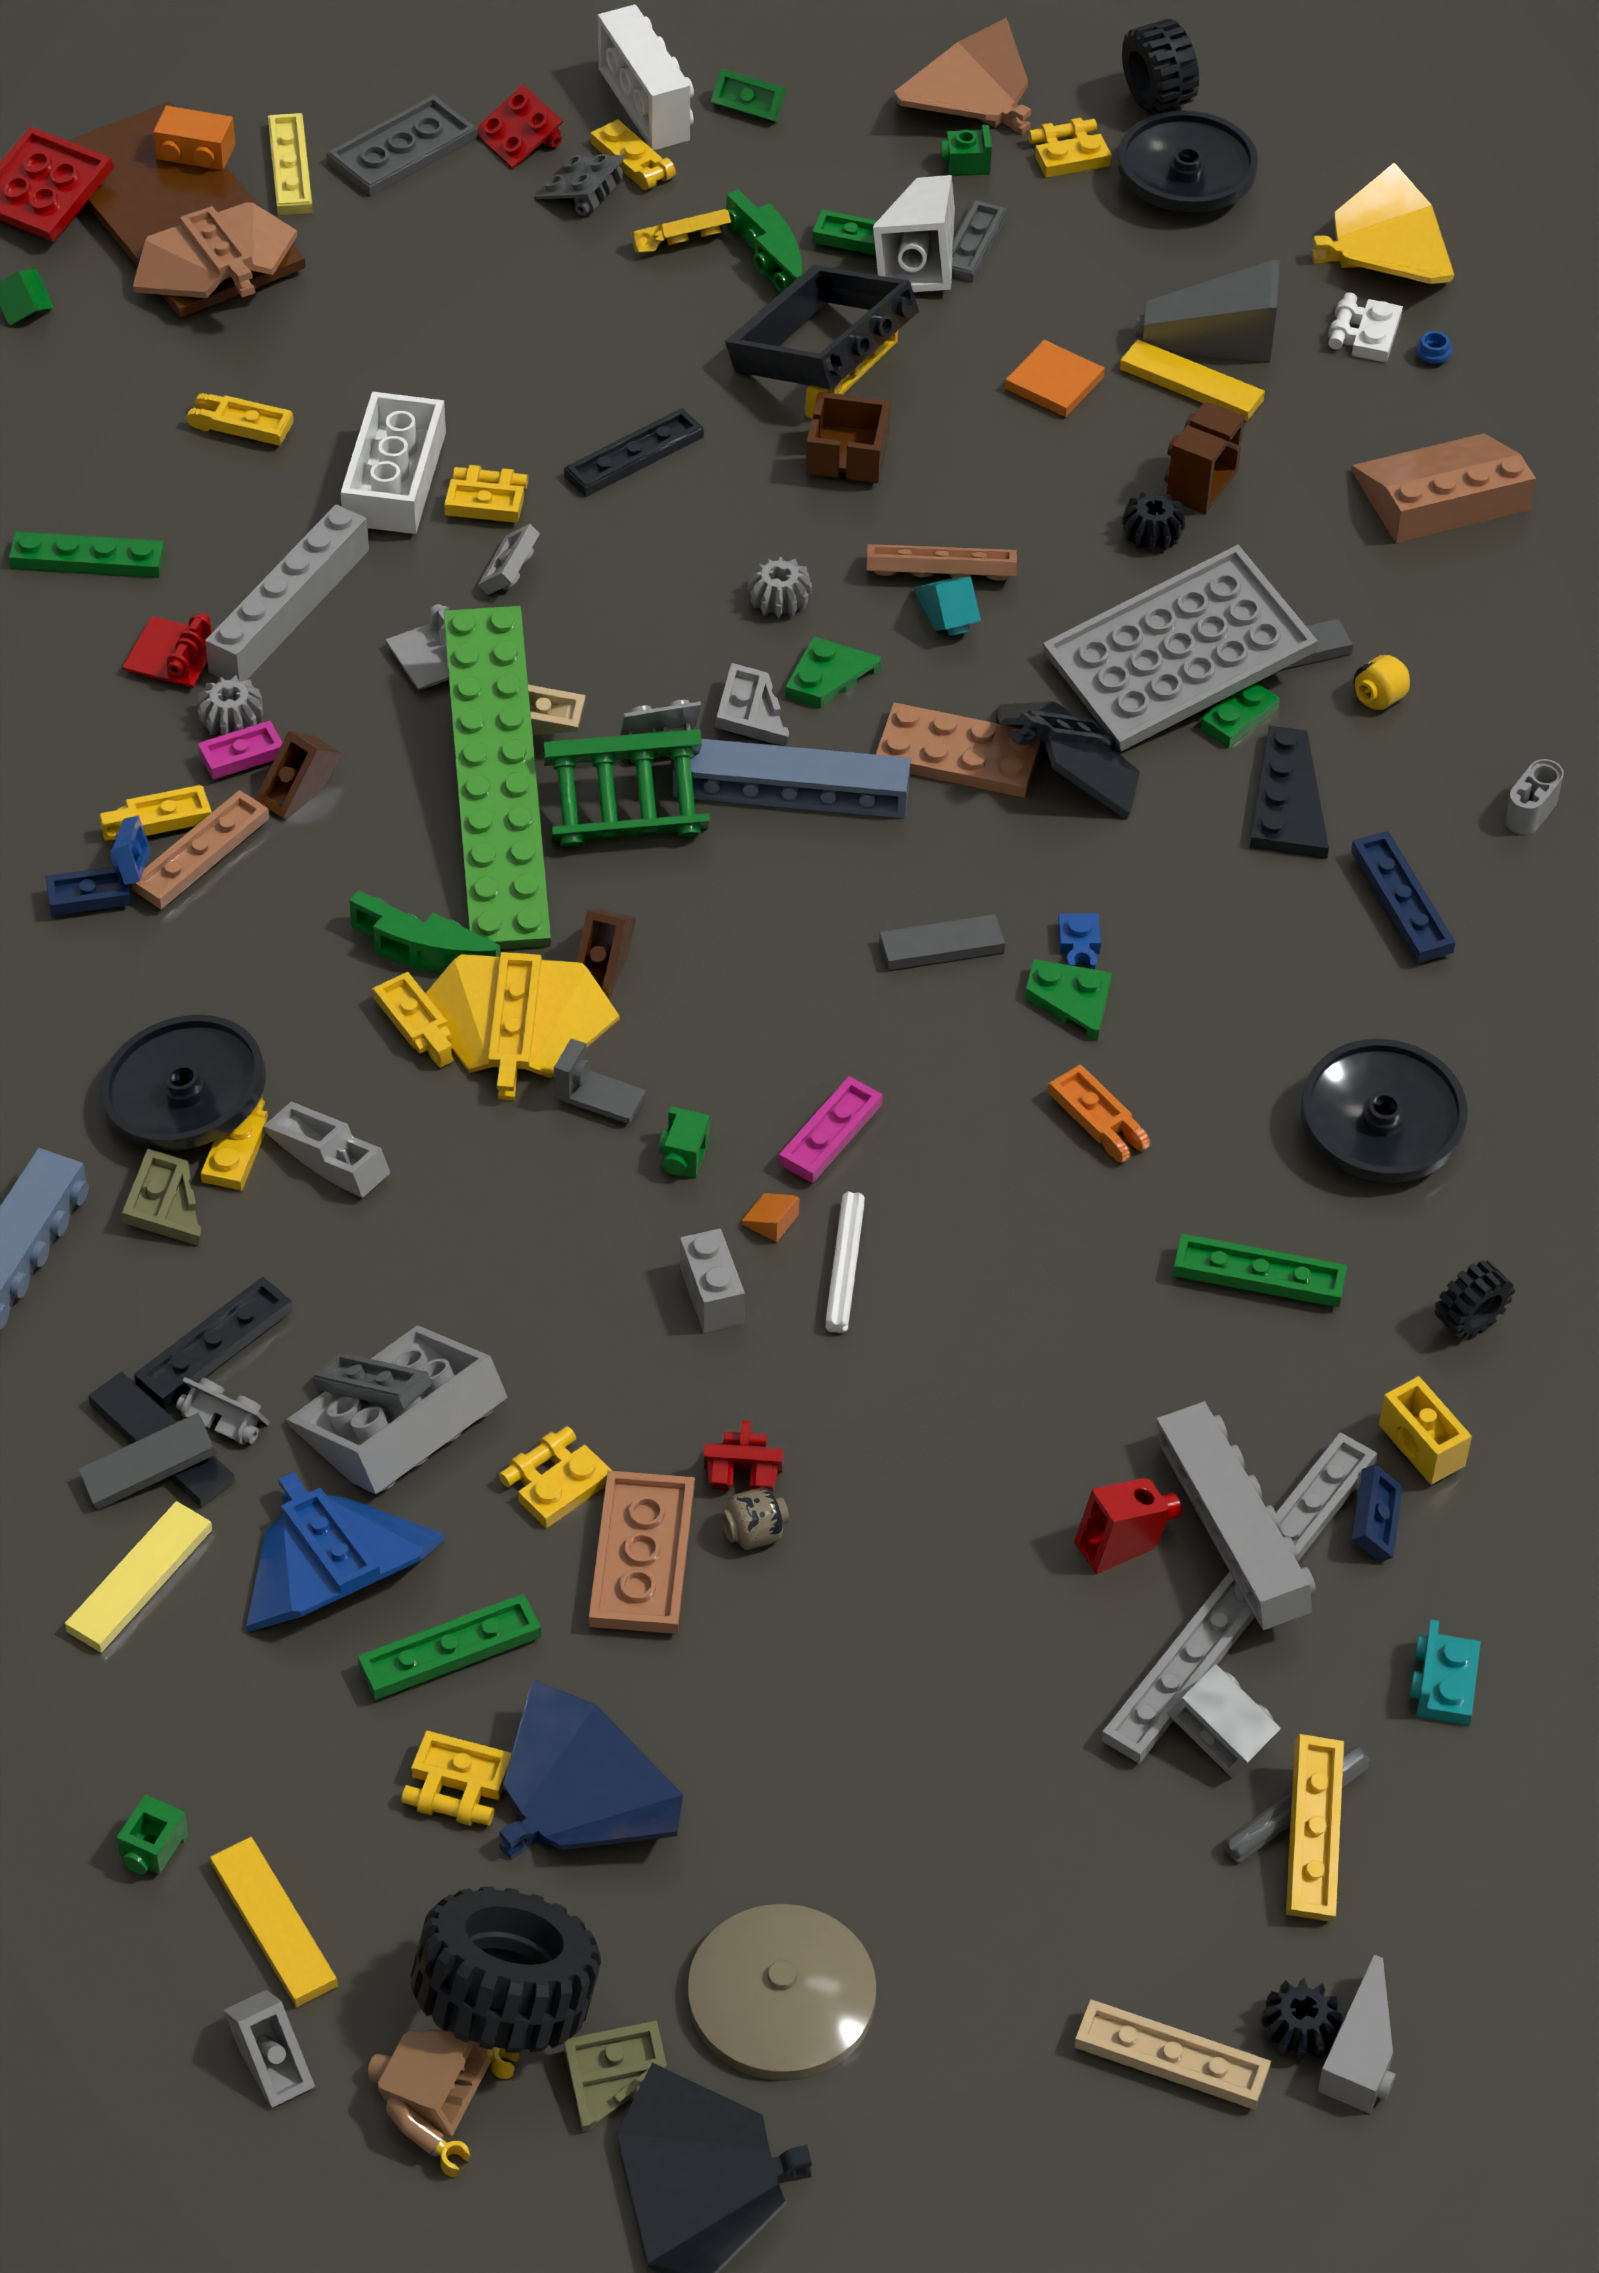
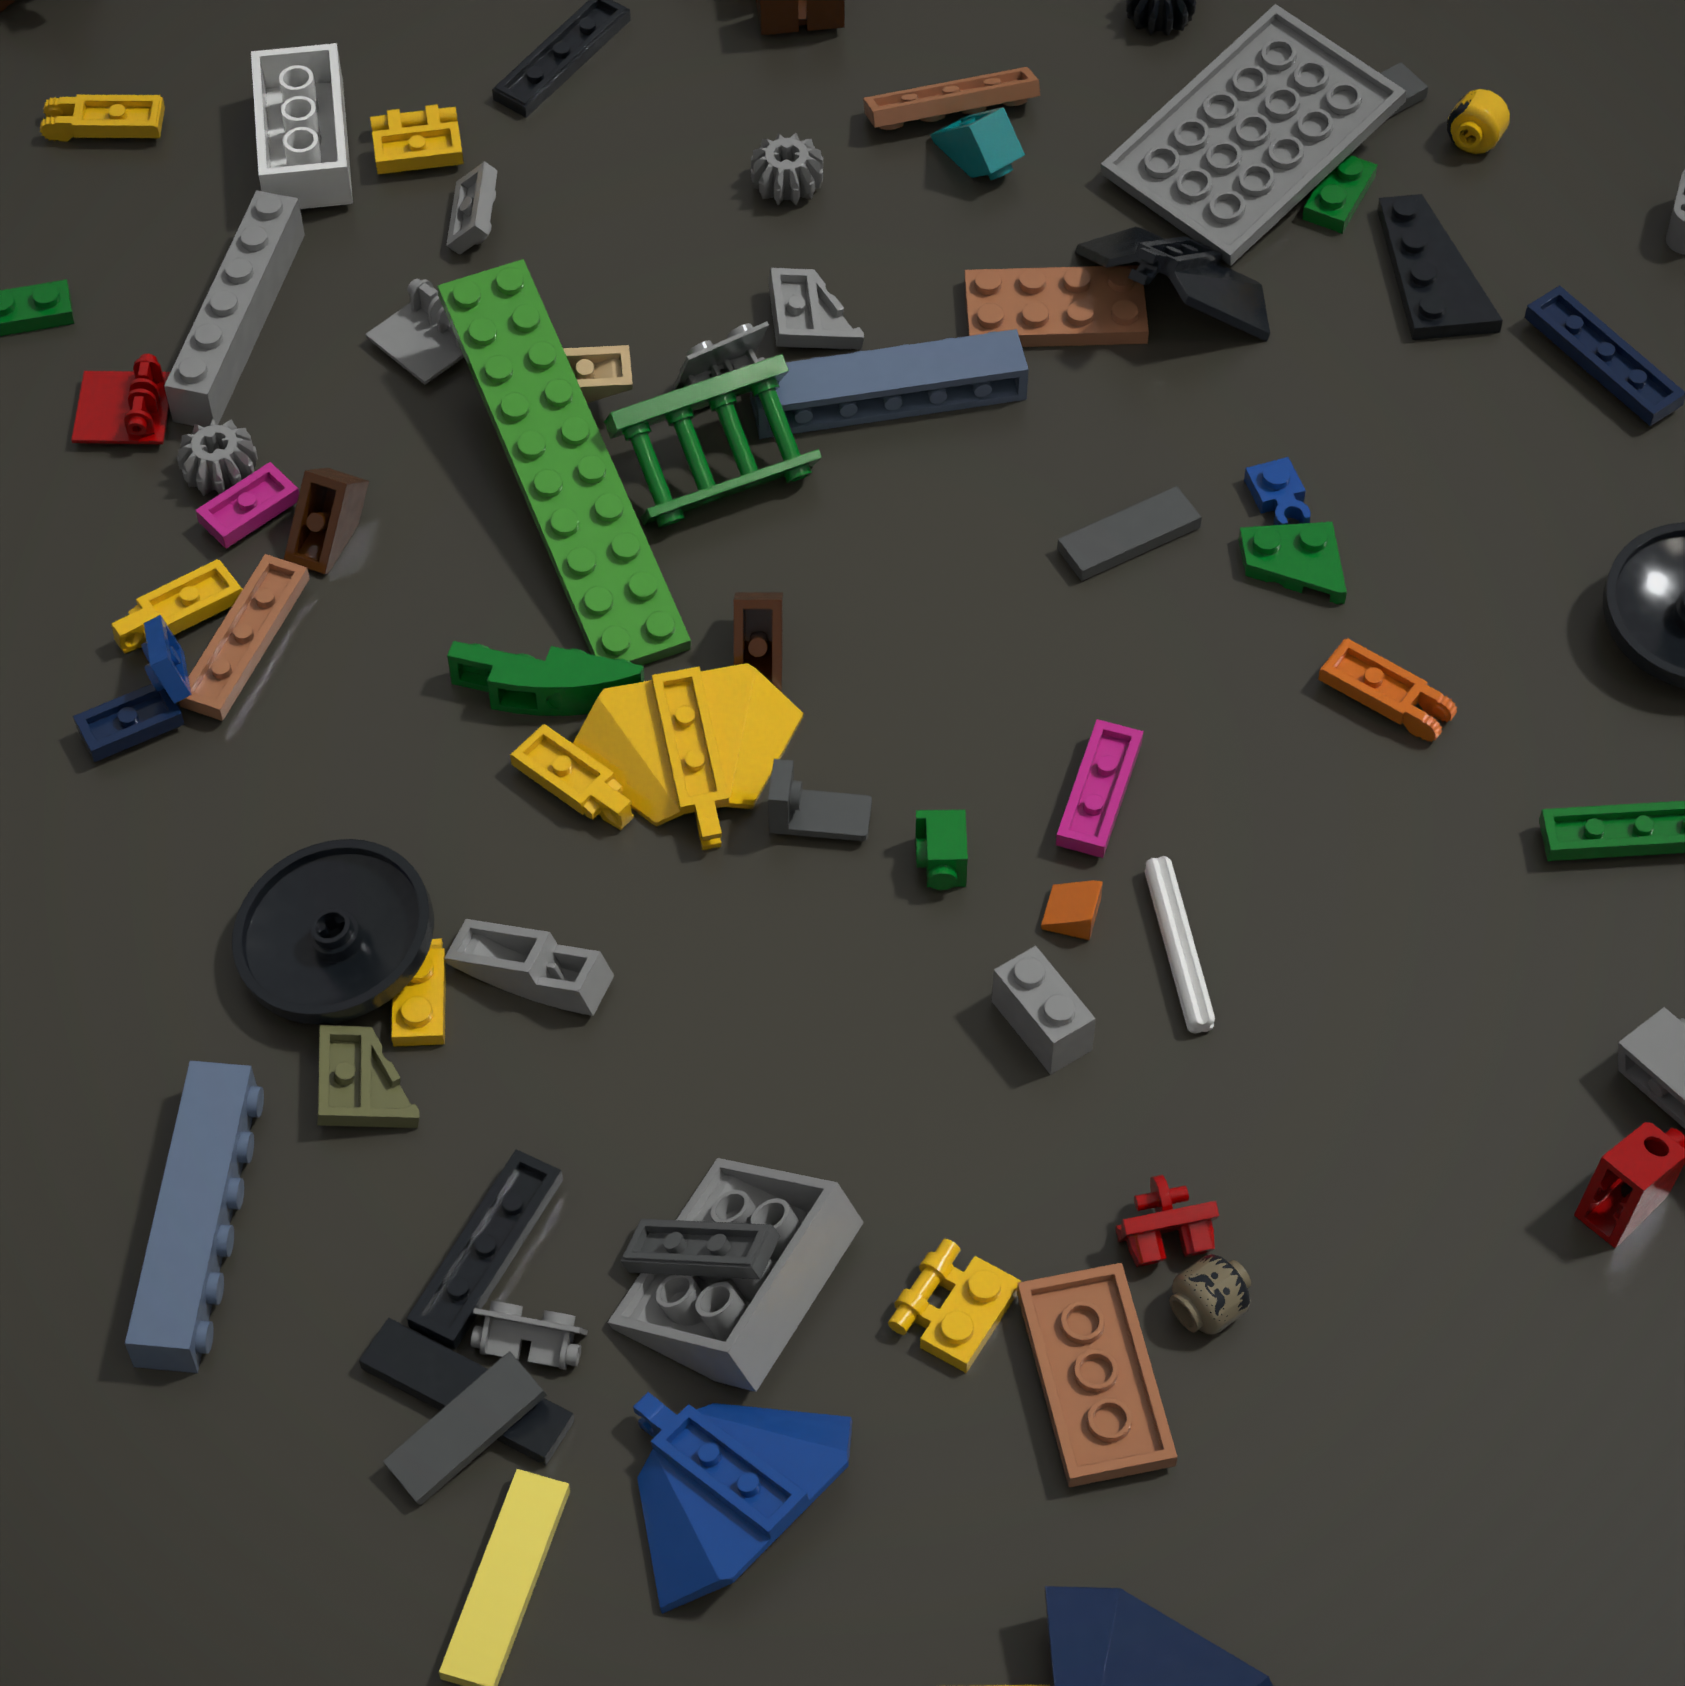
camera: 15 degrees left, 5 degrees up
(449, 1646) = (916, 1564): green plate -> none
(828, 671) = (876, 252): green wing -> none

